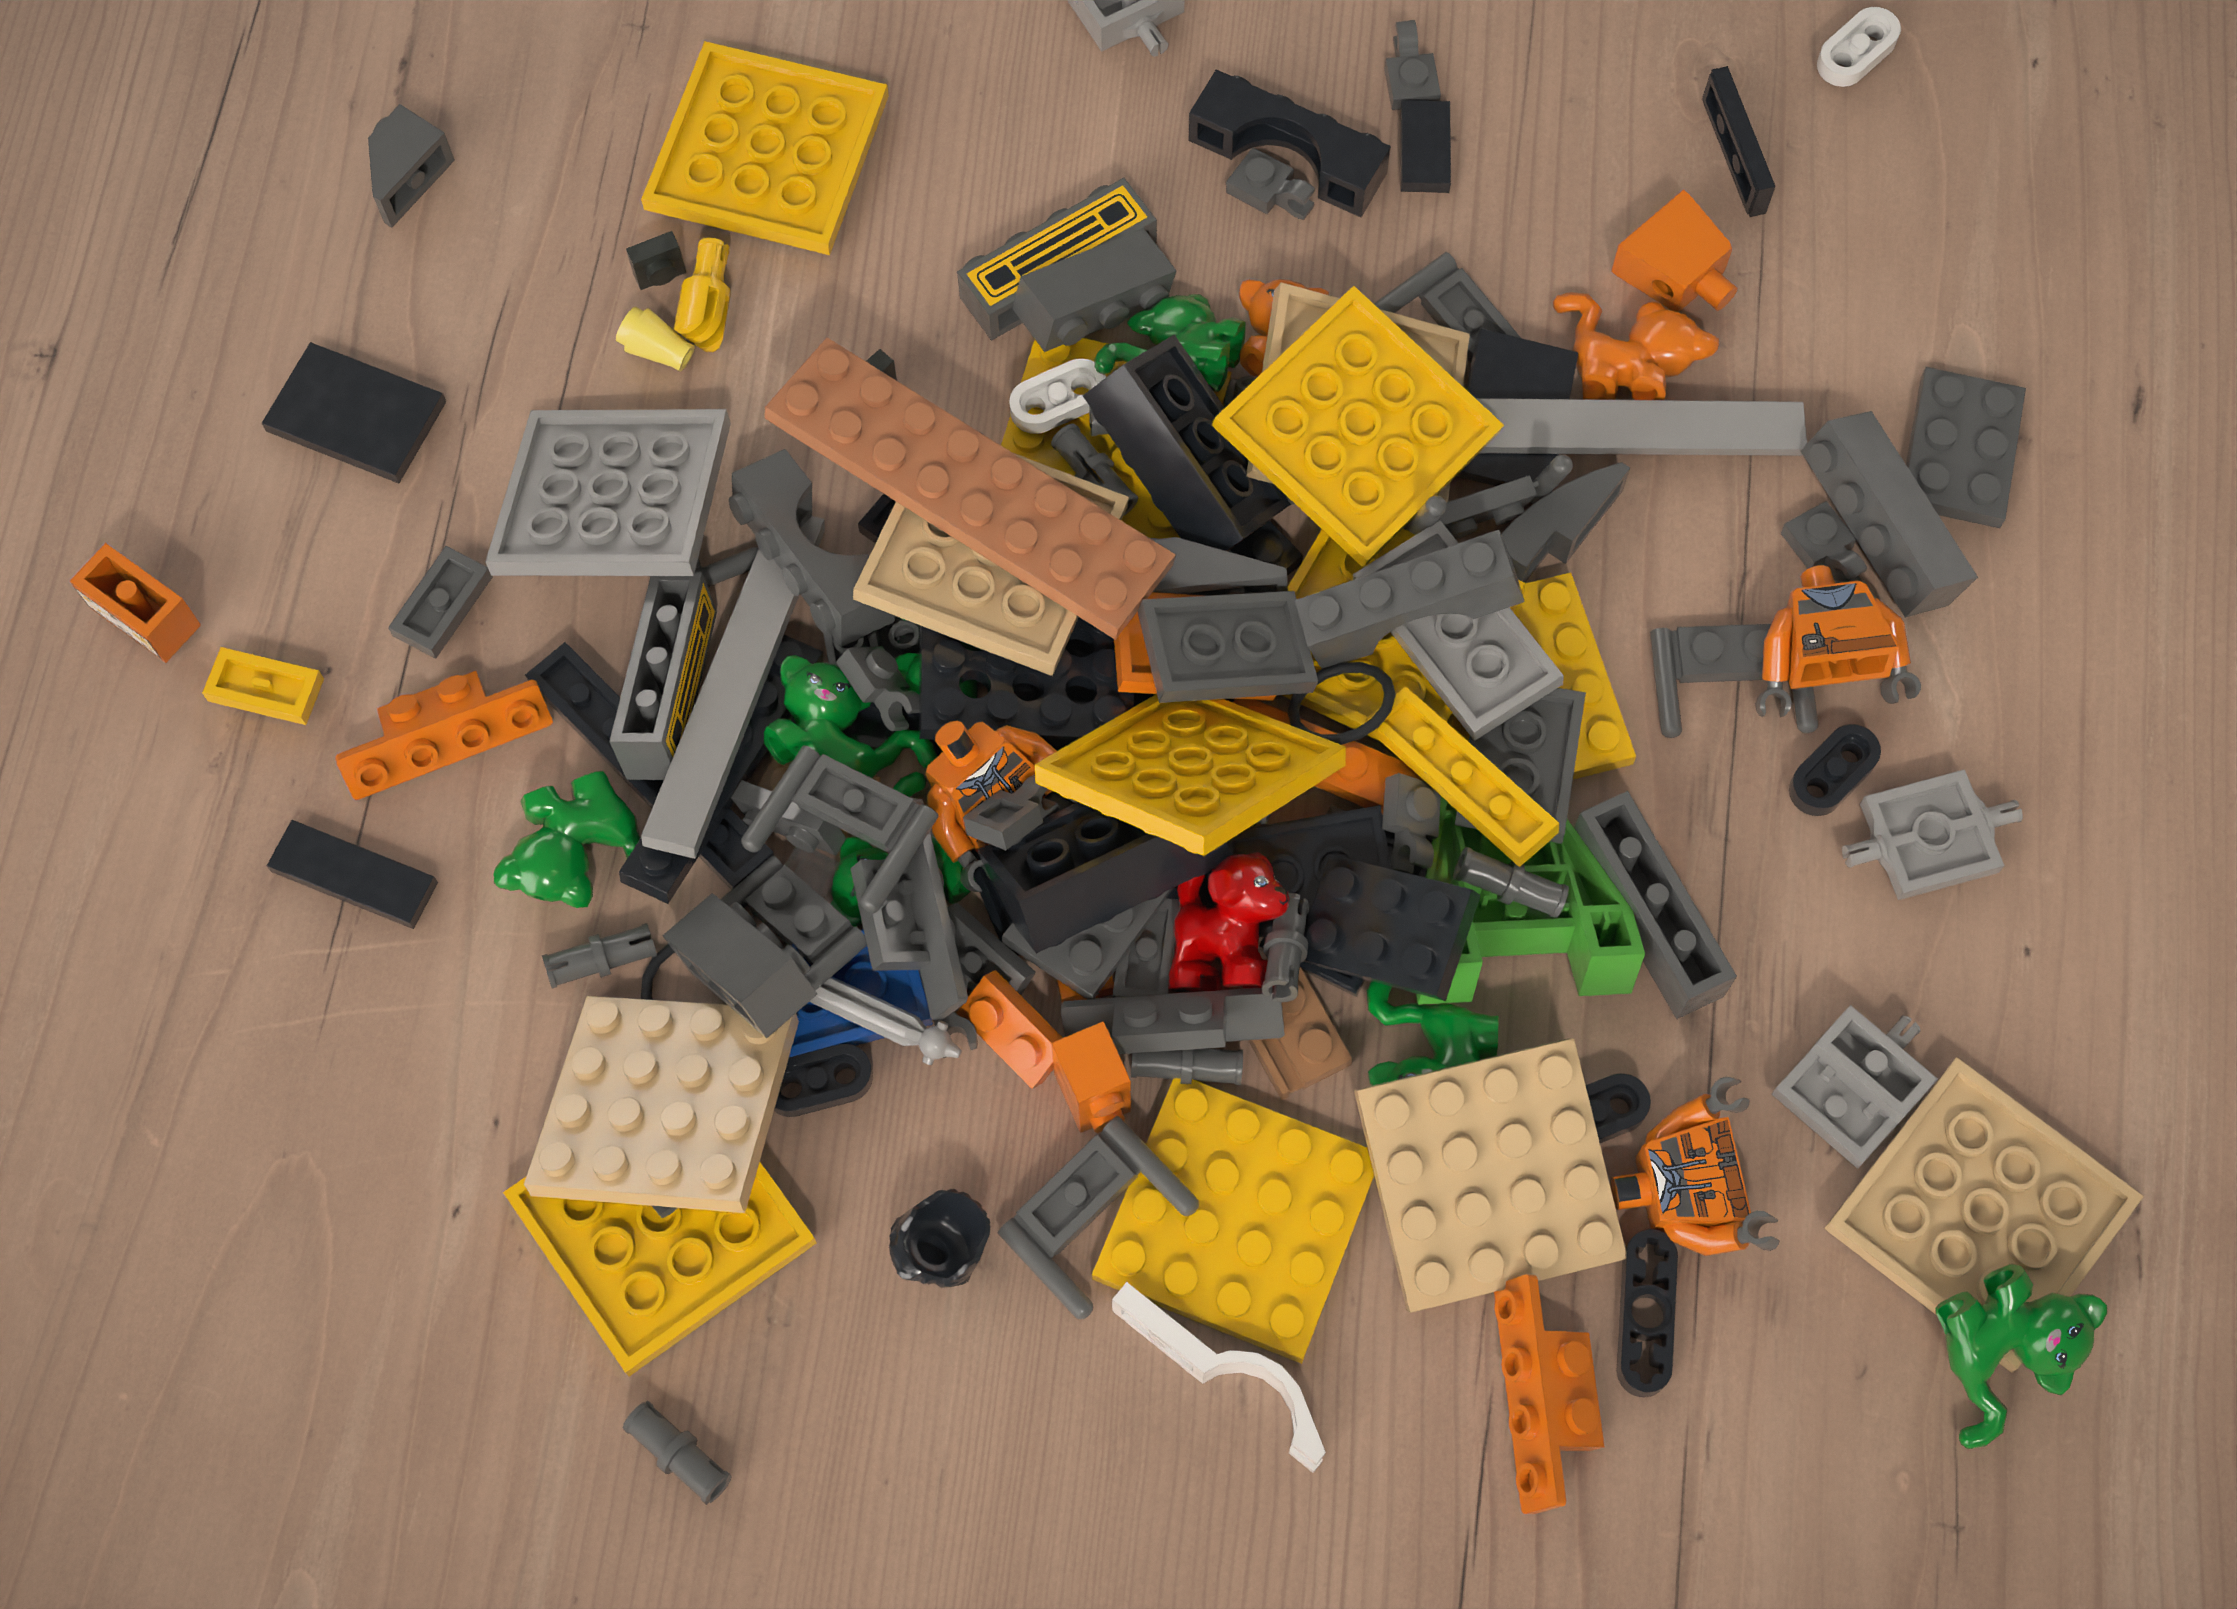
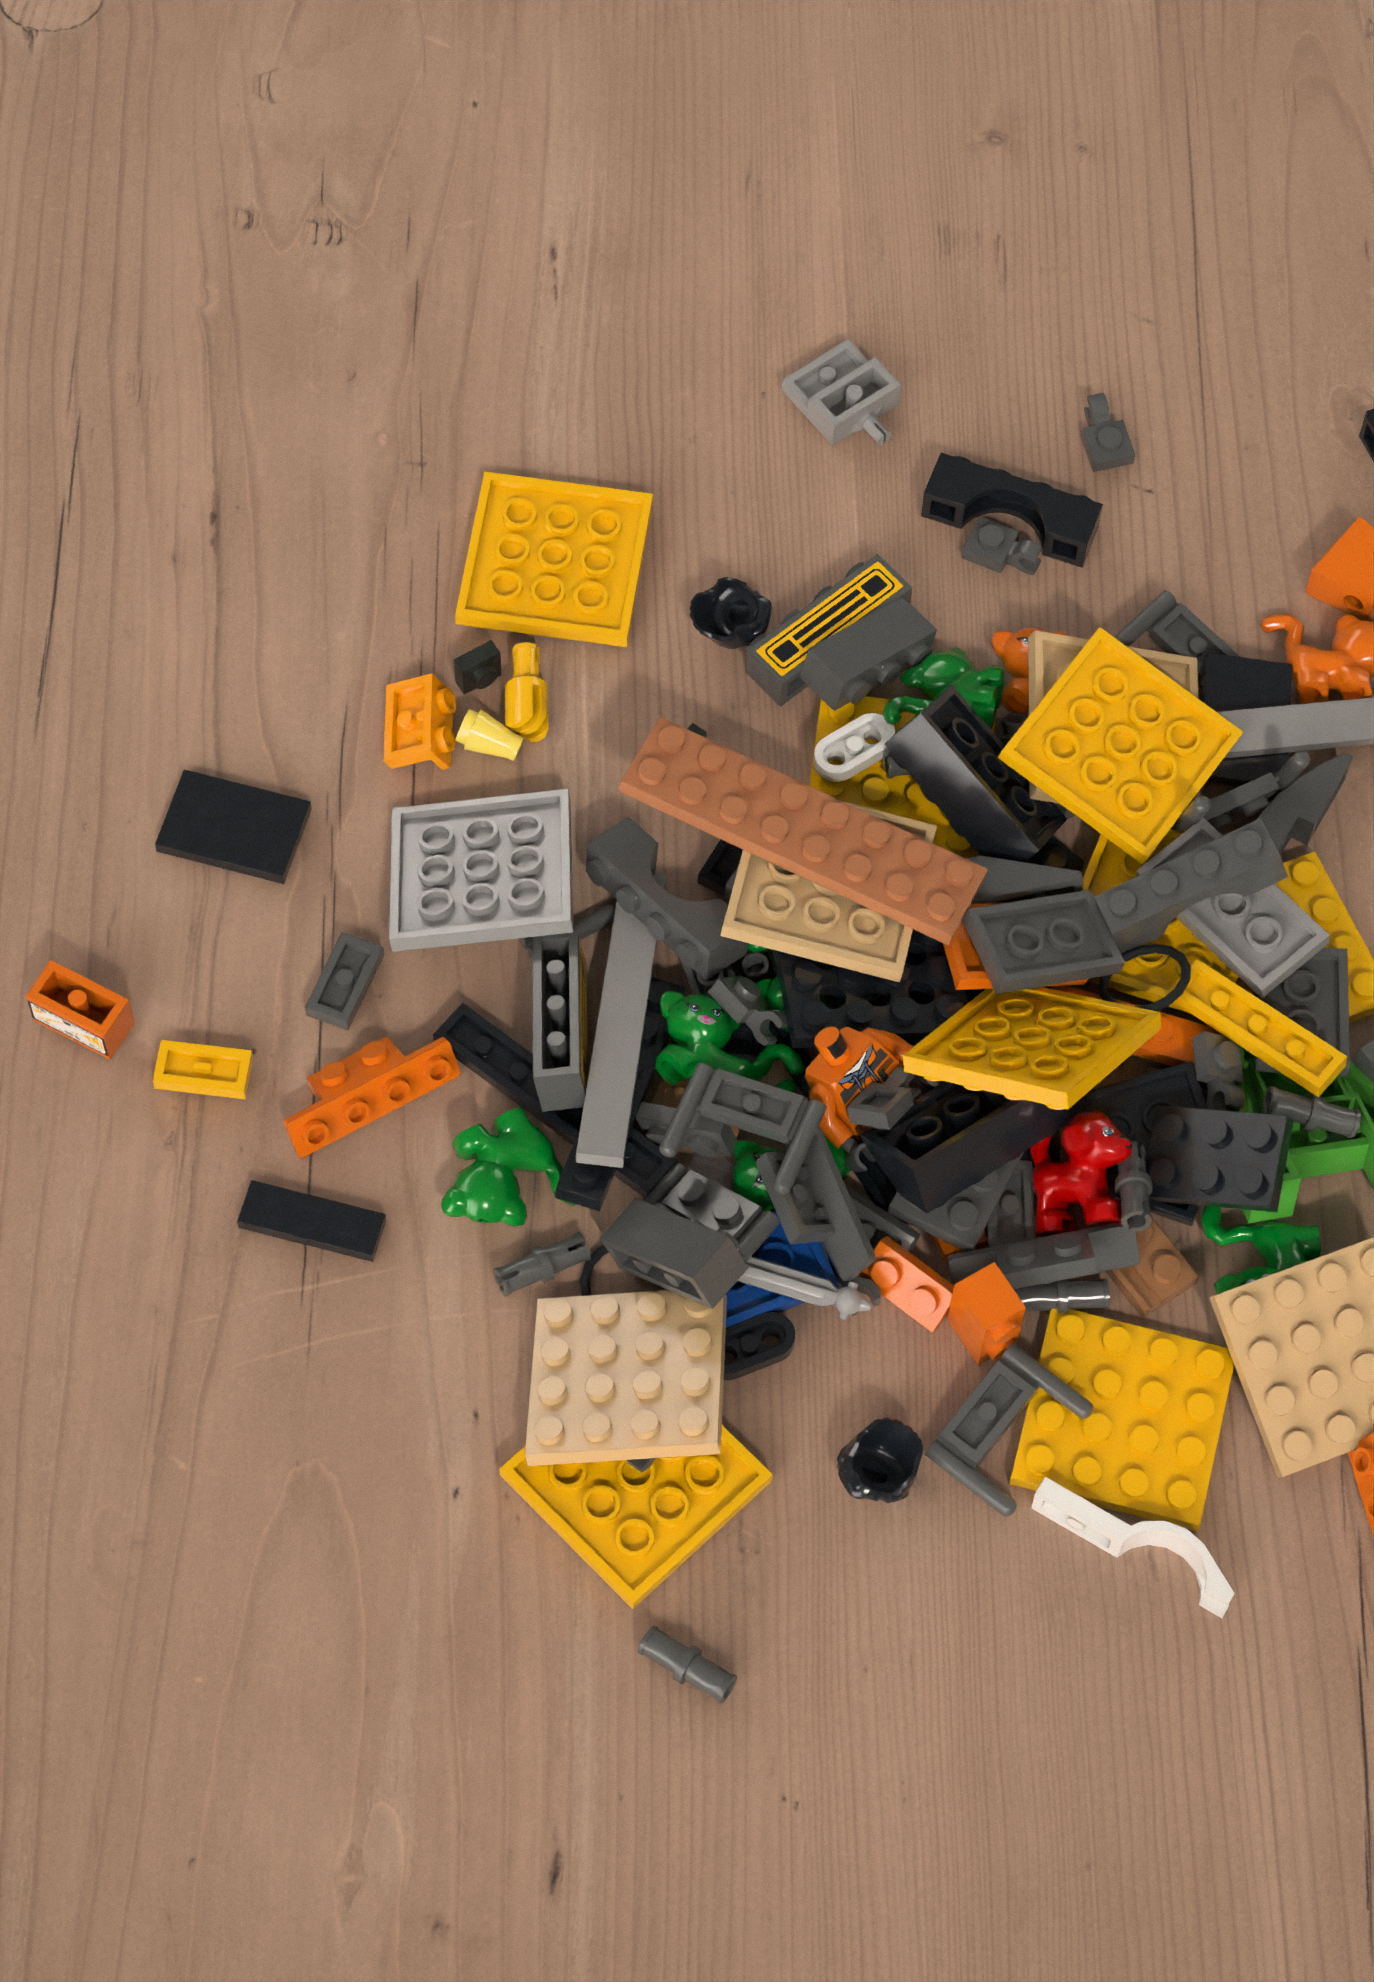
camera: 10 degrees left, 5 degrees down
(405, 161) = (238, 601): dark grey slope -> none
(580, 317) = (419, 722): none -> light orange bracket
(947, 228) = (730, 613): none -> black hair
(1076, 449) = (877, 789): dark grey pin -> none
(1425, 146) = (1128, 500): black tile -> none

